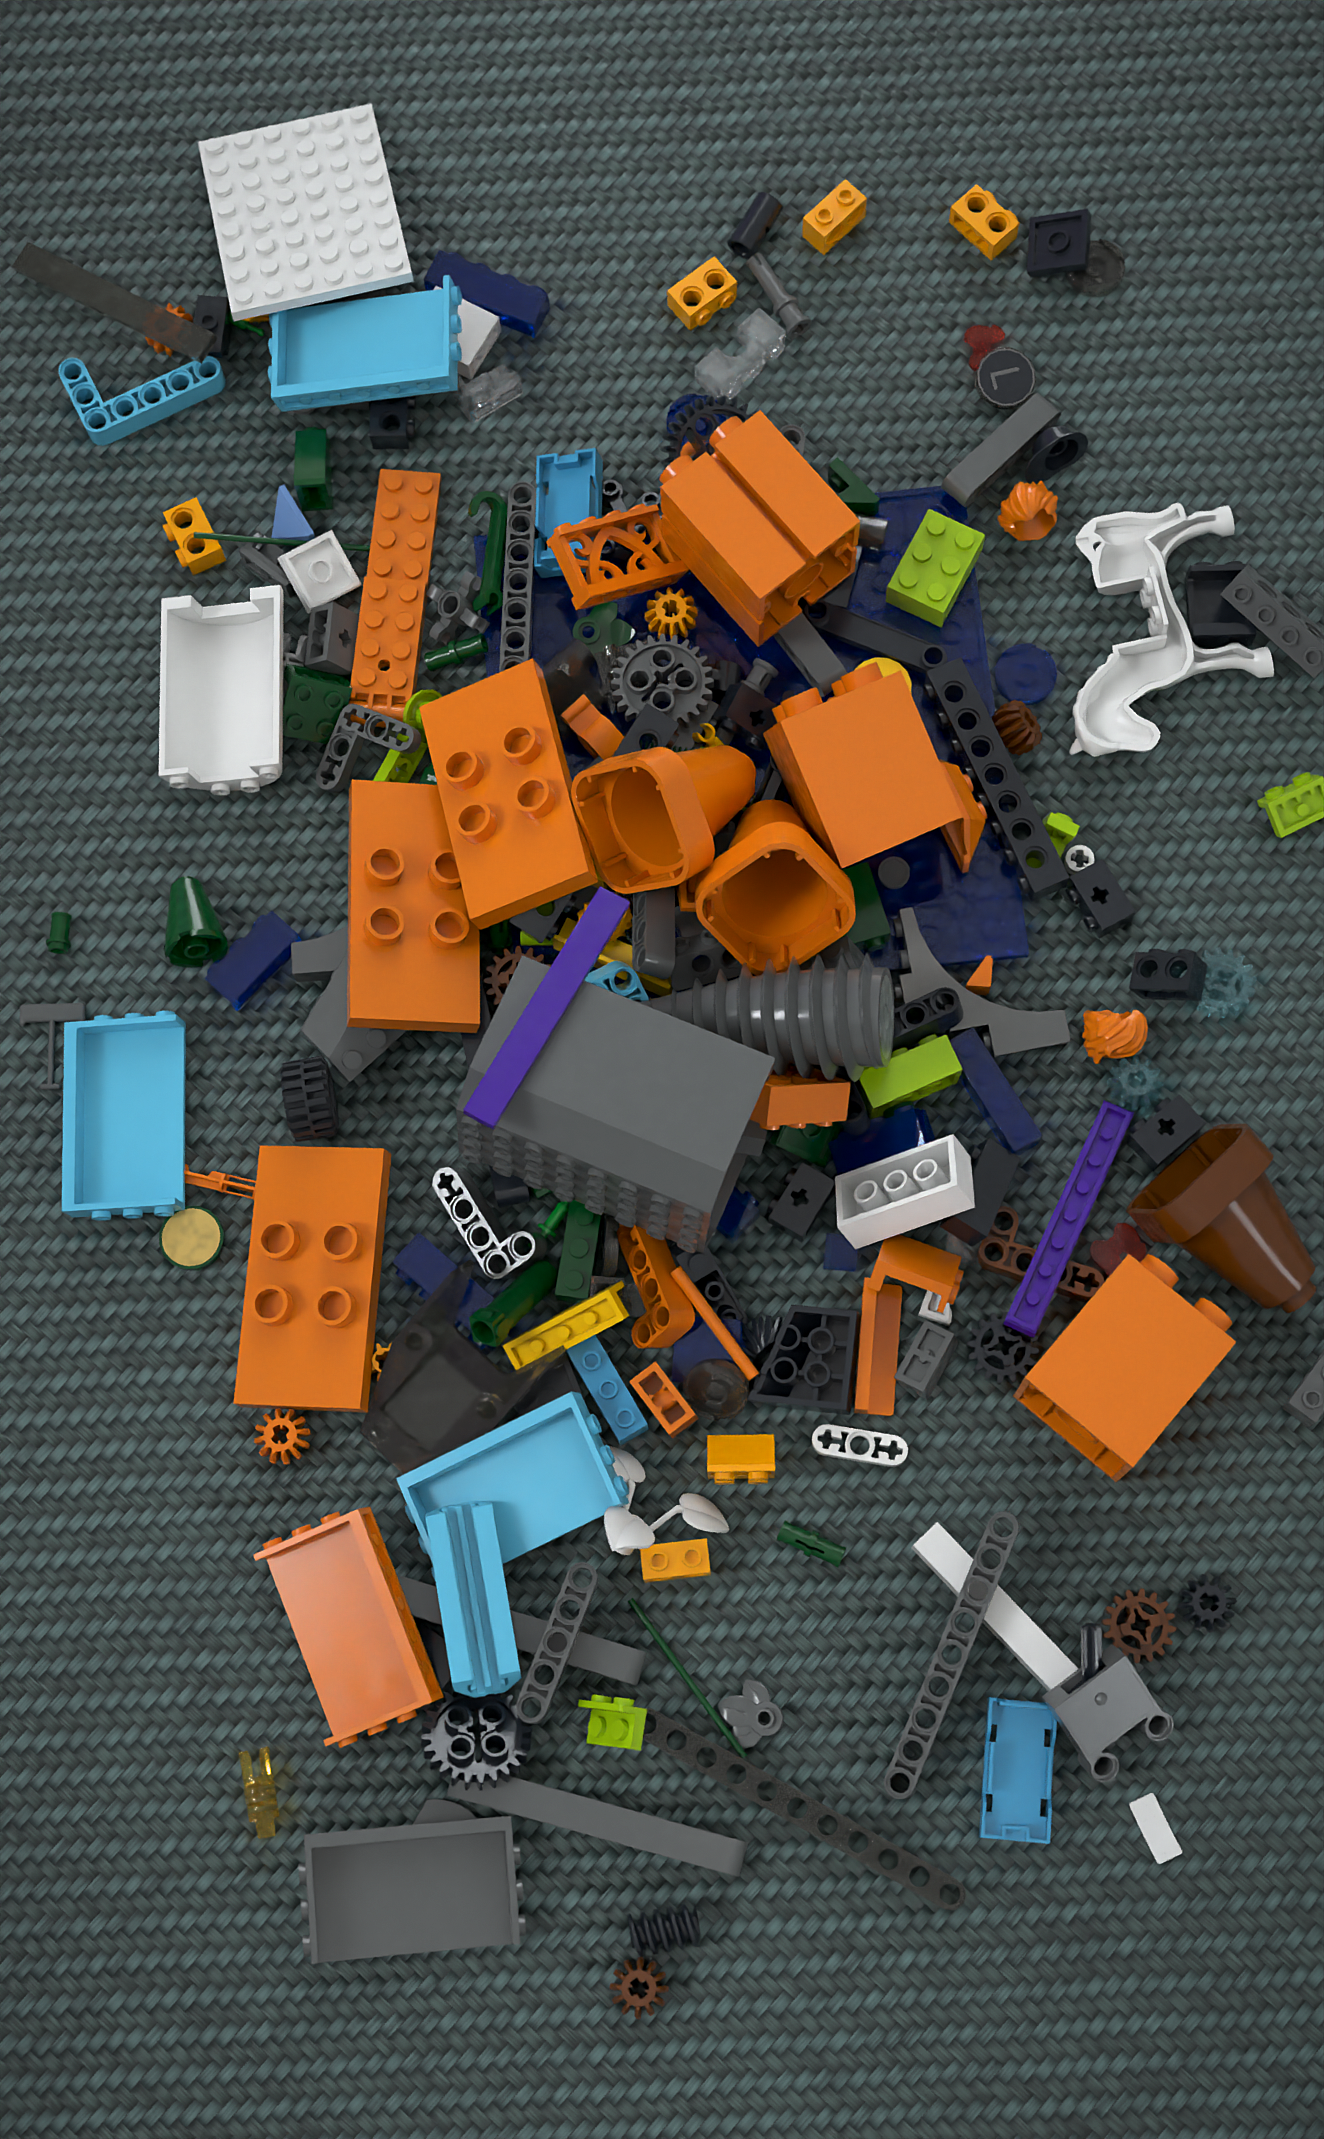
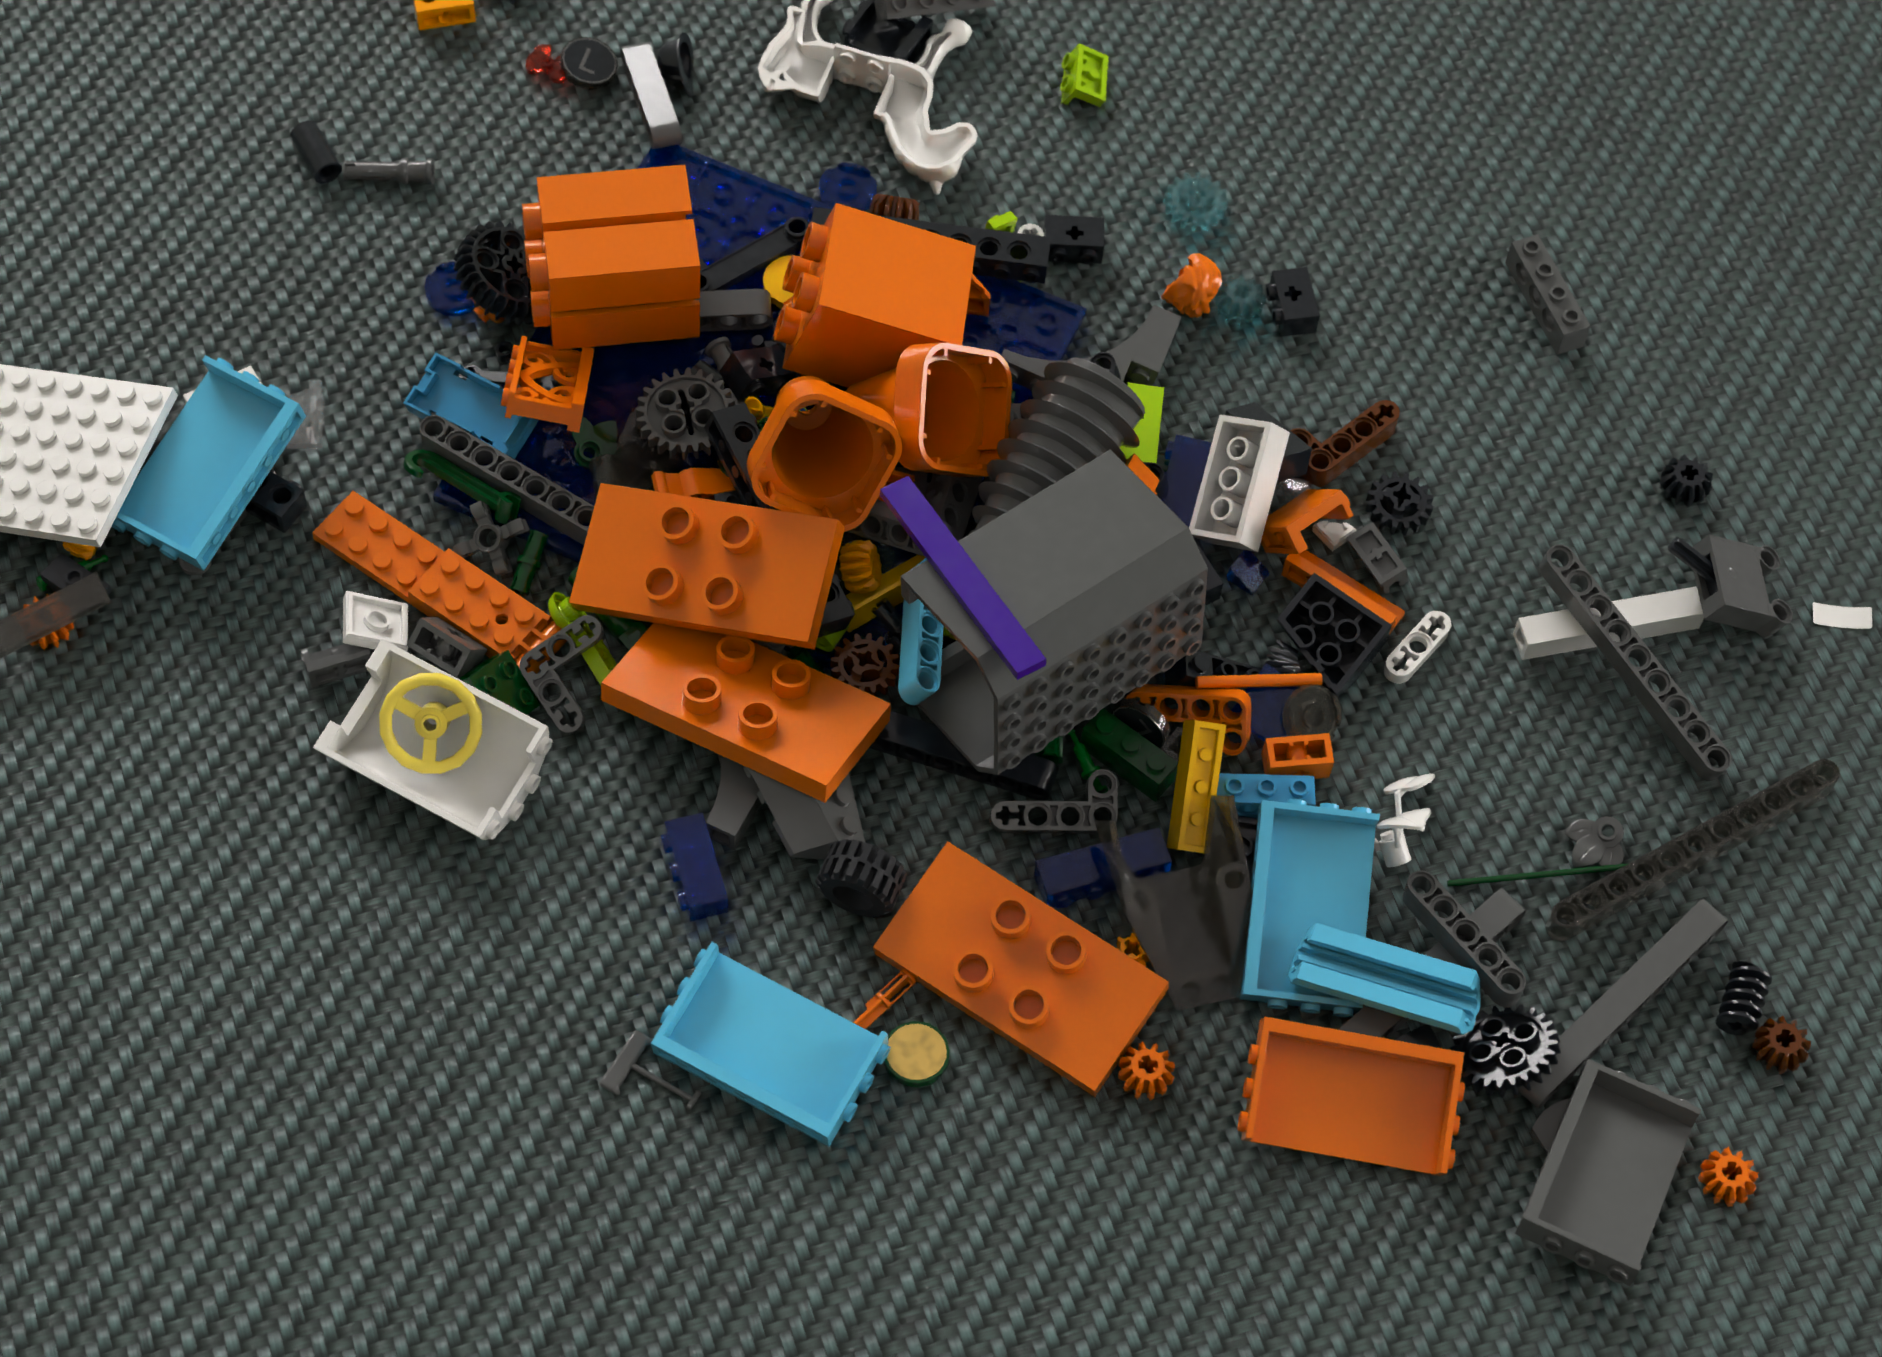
camera: 70 degrees left, 15 degrees down
(59, 933) = (562, 1017): dark green pin -> none
(139, 398) = (95, 684): medium azure beam -> none
(192, 512) = (263, 698): light orange brick -> none
(192, 926) = (630, 894): dark green cone -> none
(239, 671) = (434, 710): none -> light yellow piece
(260, 1793) = (1453, 1256): clear yellow hinge -> none
(277, 541) = (315, 646): dark green axle -> none
(289, 520) = (307, 623): medium blue slope -> none
(313, 469) = (275, 578): dark green slope -> none
(473, 2012) = (1735, 1168): none -> orange gear
(494, 1321) = (1150, 816): dark green piece -> none
(514, 303) = (246, 347): clear blue brick -> none
(614, 1723) = (1553, 939): lime bracket -> none
(671, 603) = (619, 385): light orange gear -> none
(675, 1560) = (1439, 827): light orange brick -> none
(697, 289) = (346, 219): light orange brick -> none
(725, 374) = (421, 204): clear arch -> none
(740, 1458) = (1381, 729): light orange slope -> none
(811, 1543) = (1466, 732): dark green pin -> none
(834, 217) = (355, 94): light orange brick -> none
(935, 567) = (723, 187): lime brick -> none
(981, 979) = (1082, 346): orange slope -> none
(994, 1094) = (1196, 393): clear blue brick -> none
(1017, 1771) = (1748, 679): dark azure piece -> none
(1029, 511) = (717, 105): orange hair -> none
(1068, 1219) = (1326, 397): dark purple tile -> none
(1107, 1252) = (1361, 380): clear red piece -> none
(1126, 1365) = (1479, 413): orange brick -> none
(1142, 1641) = (1674, 523): reddish brown gear -> none
(1167, 982) = (1177, 230): black brick -> none
(1229, 1217) = (1387, 285): reddish brown cone -> none

